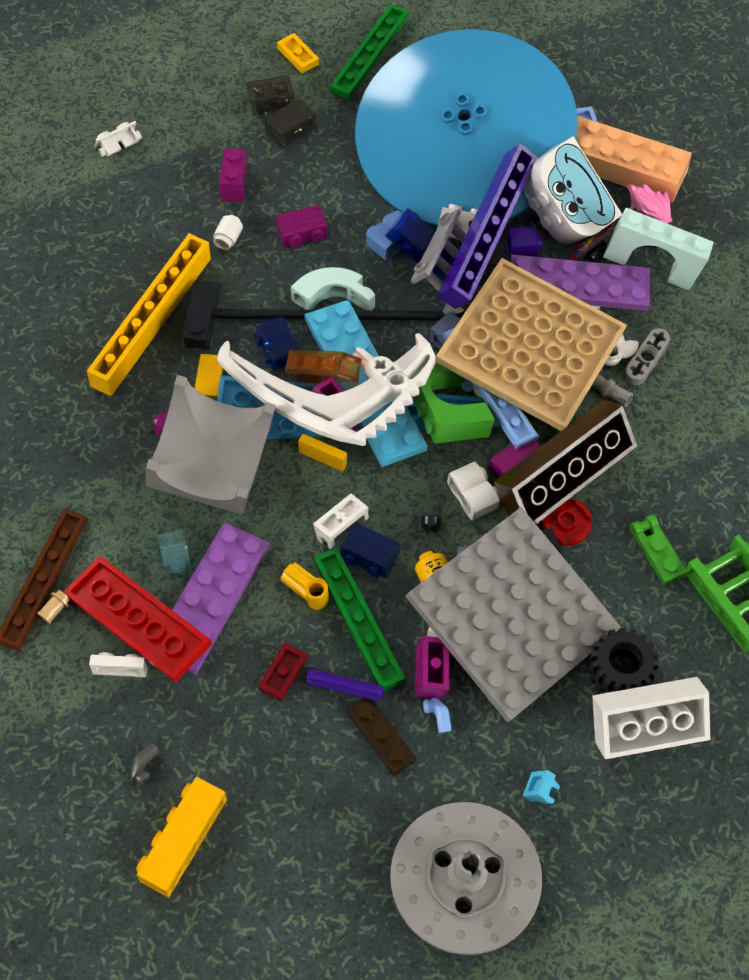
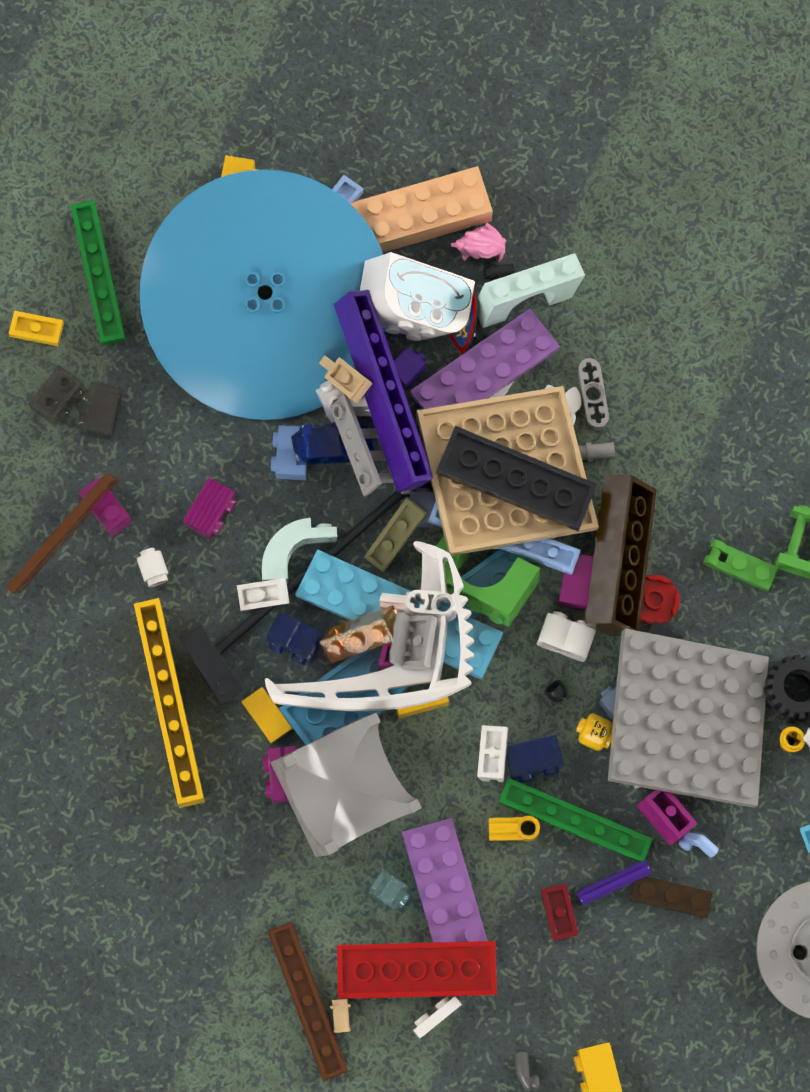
camera: 45 degrees left, 15 degrees up
(188, 161) = (62, 533): none -> reddish brown tile
(283, 298) = (263, 594): none -> white plate
(348, 383) = (413, 641): none -> light grey bracket
(404, 333) = (396, 534): none -> olive tile
(469, 201) = (345, 378): none -> tan hinge
(533, 347) = (516, 478): none -> black plate
(582, 695) = (795, 735): none -> yellow cone

